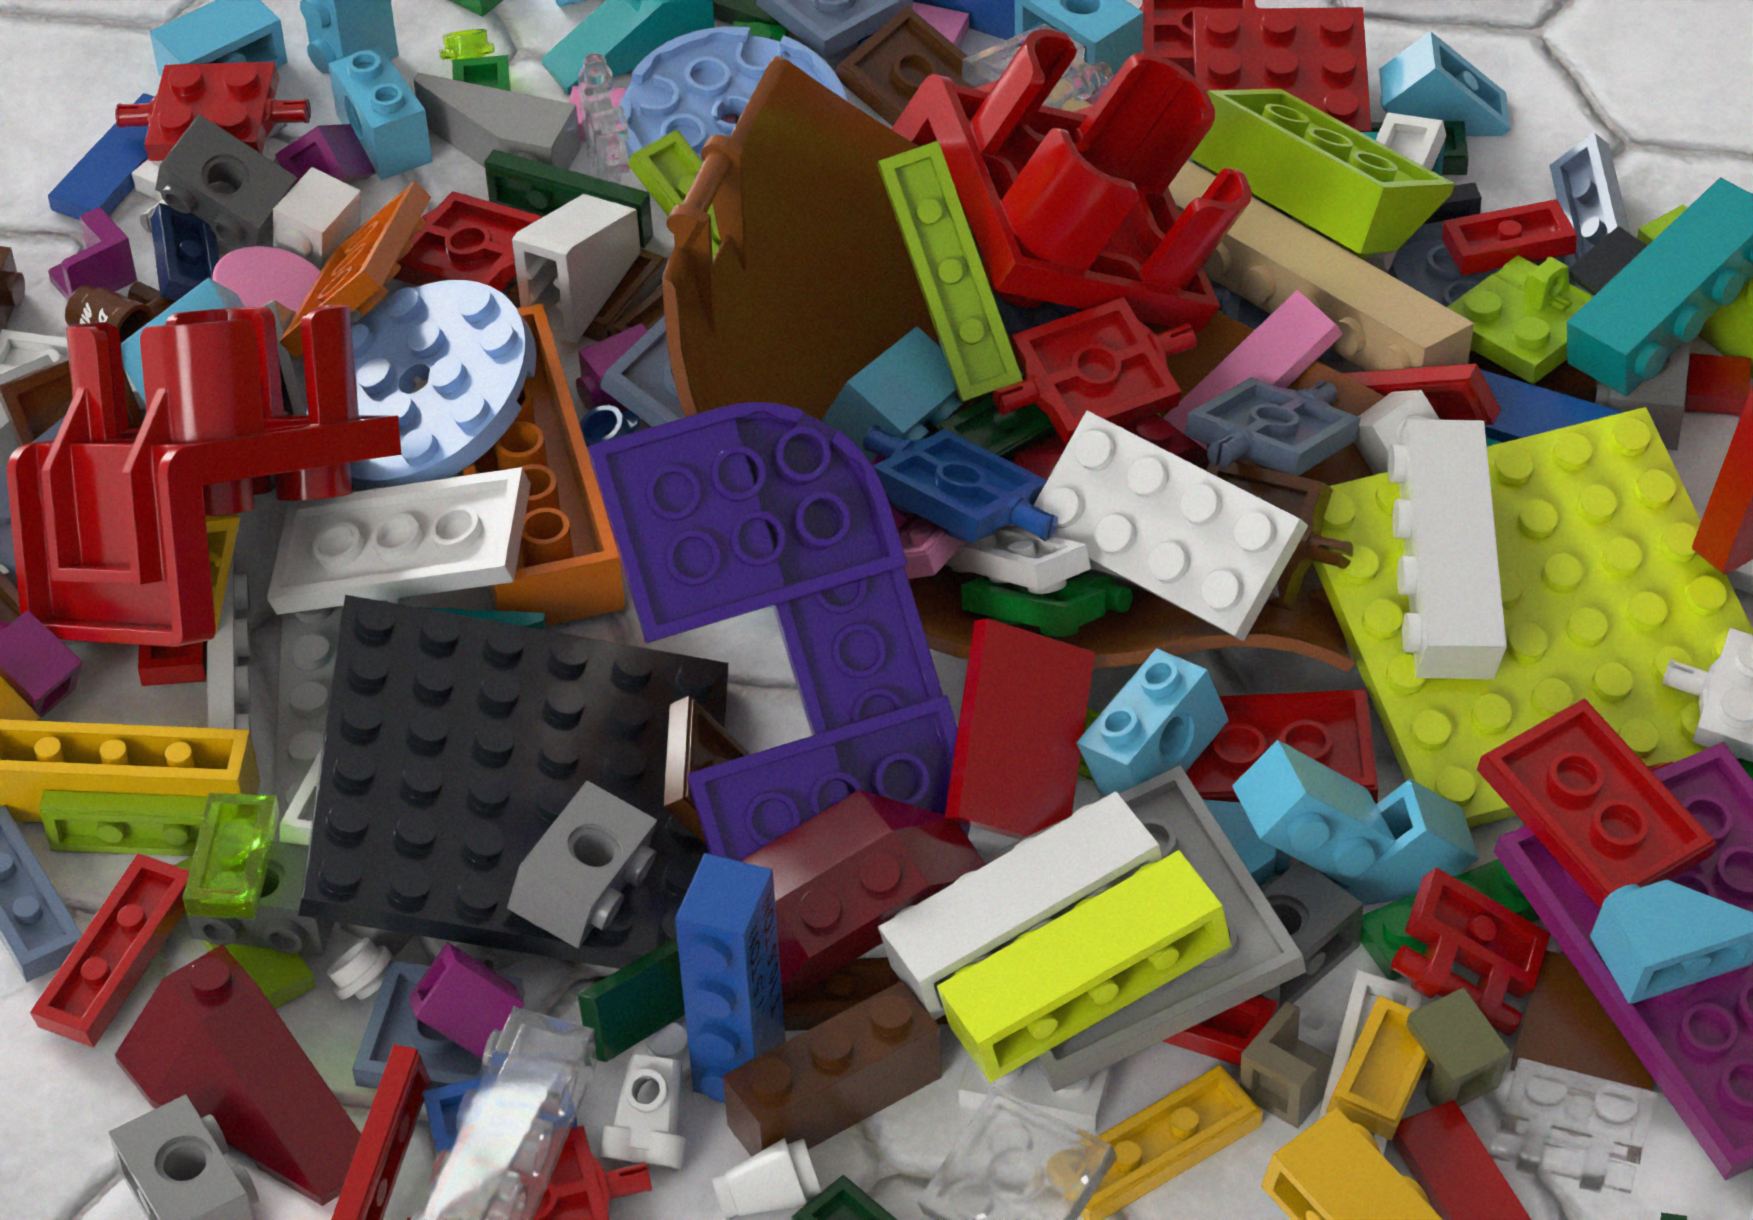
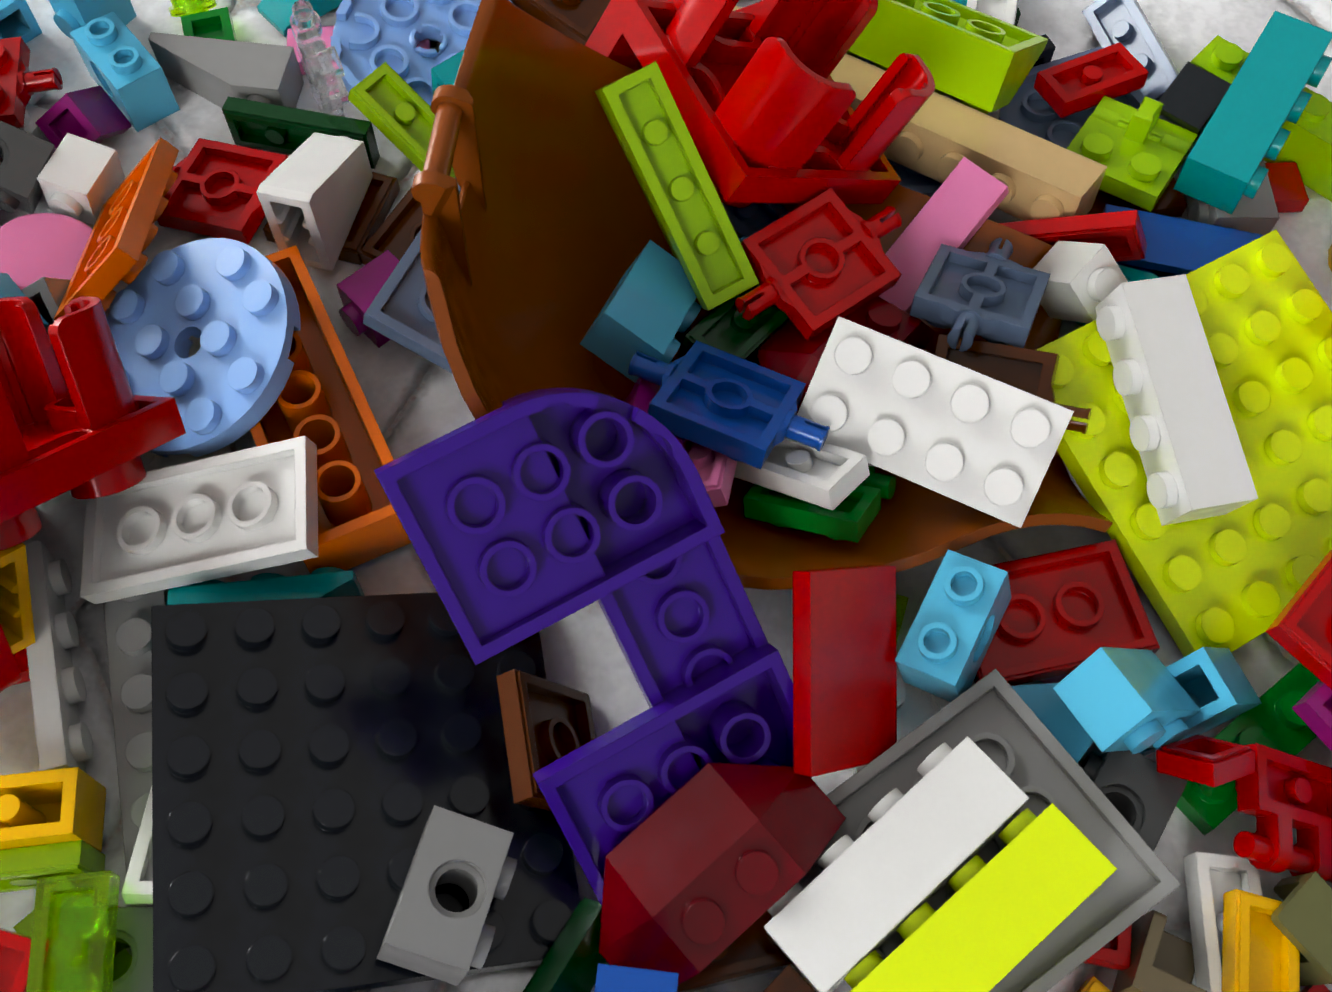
camera: 15 degrees left, 15 degrees up
(607, 423) = (367, 352): blue plate -> none
(1379, 876) = (1205, 760): none -> red tile

